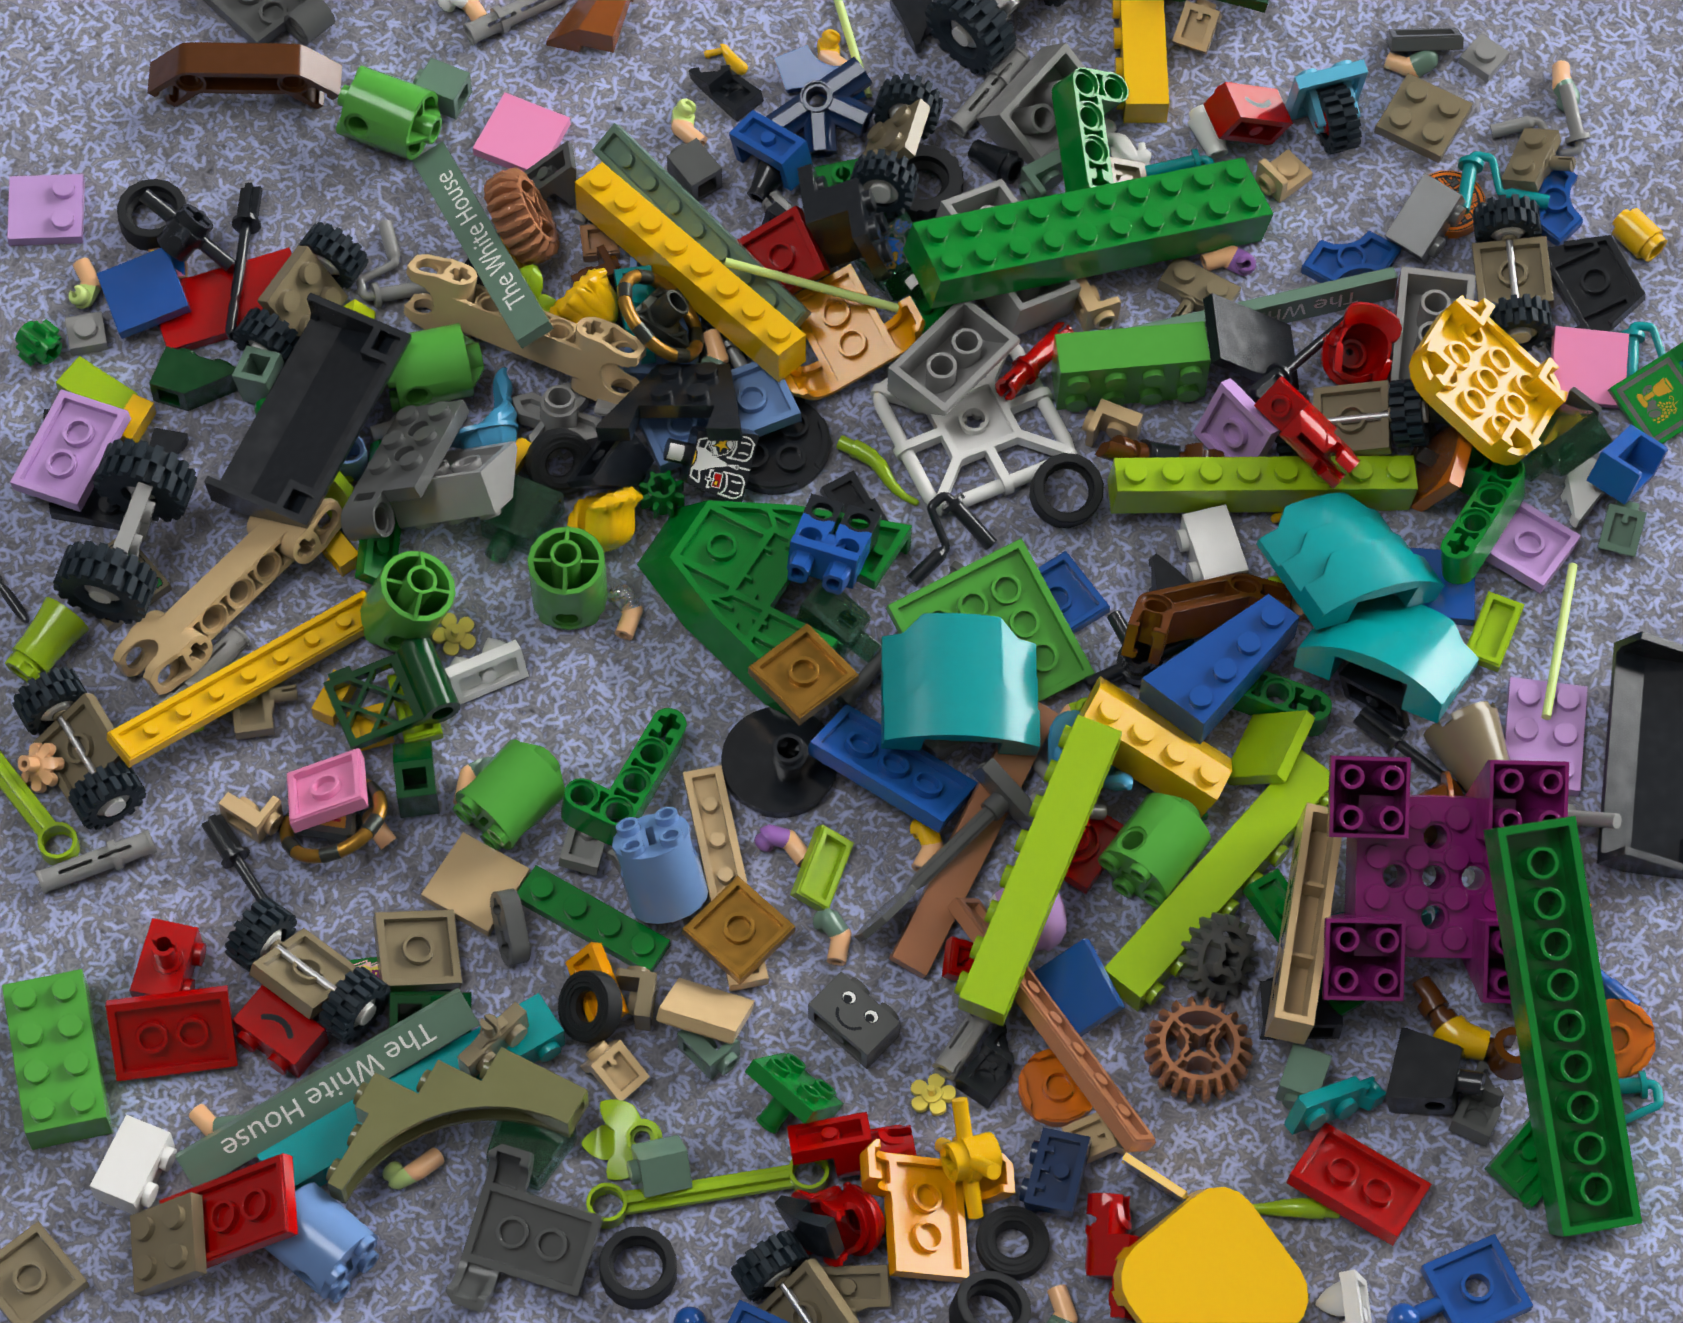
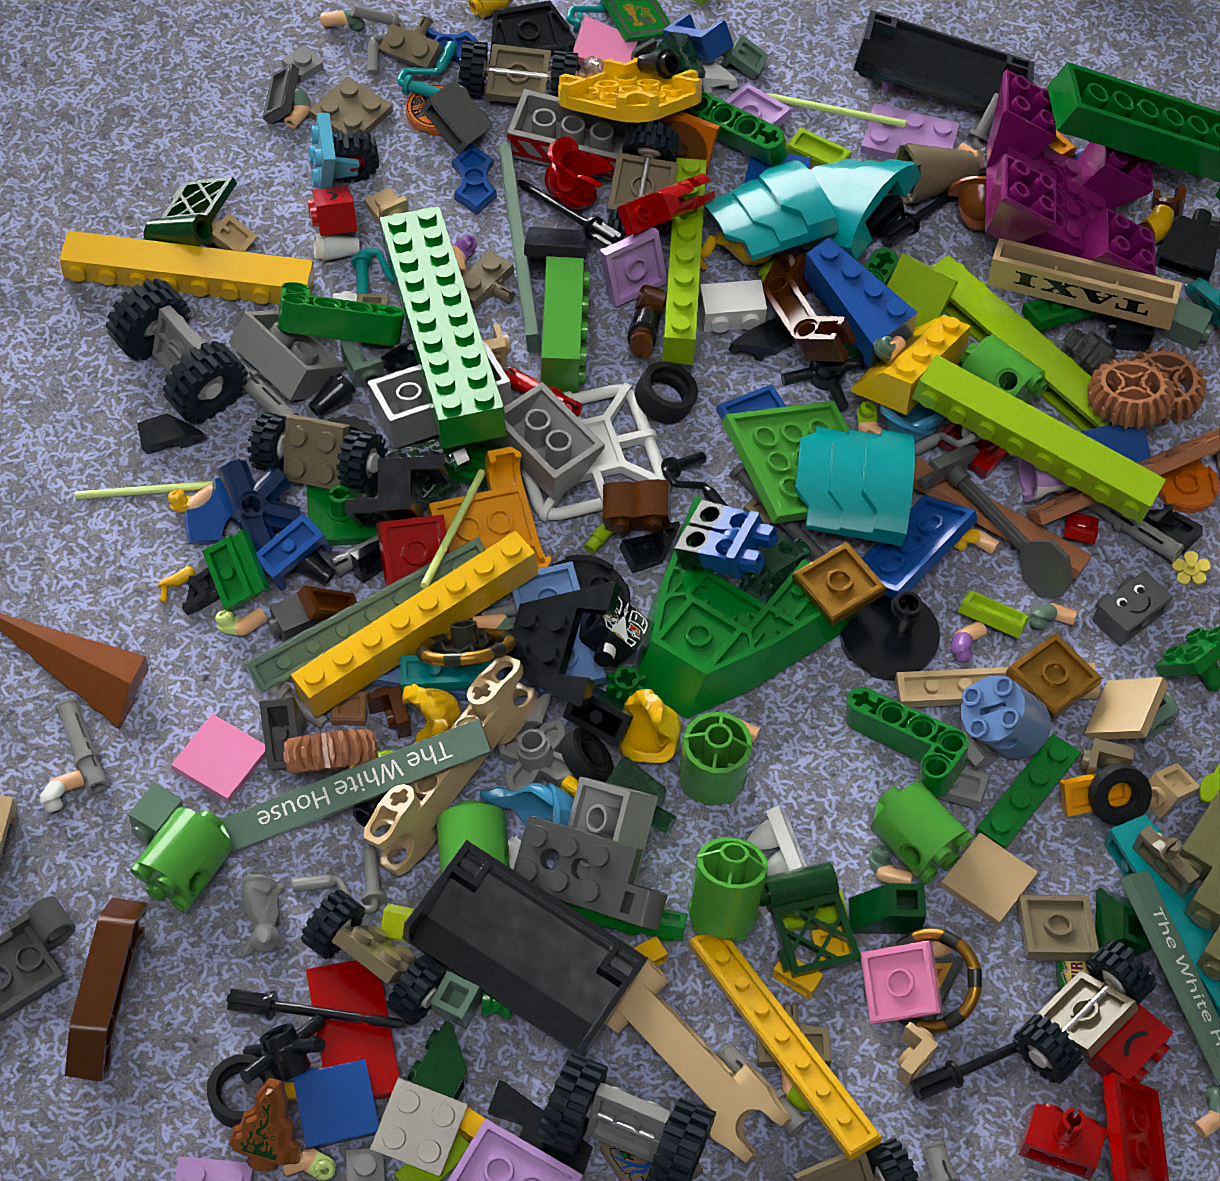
camera: 85 degrees left, 5 degrees down
(102, 234) = (267, 1131): none -> dark orange rock
(120, 361) = (419, 1126): none -> plate
(350, 194) = (261, 906): none -> light grey animal
(510, 927) = (1040, 849): dark grey beam -> none
(709, 188) = (324, 603): none -> reddish brown tile
(734, 99) = (236, 570): none -> green plate
(887, 469) = (636, 505): none -> reddish brown brick
(1112, 420) = (604, 353): tan bracket -> none
(1141, 697) = (888, 348): none -> sand green arm
(1151, 1006) = (1131, 394): none -> nougat gear
(1538, 346) = (590, 66): none -> clear arm
(1549, 413) = (659, 63): none -> black cone

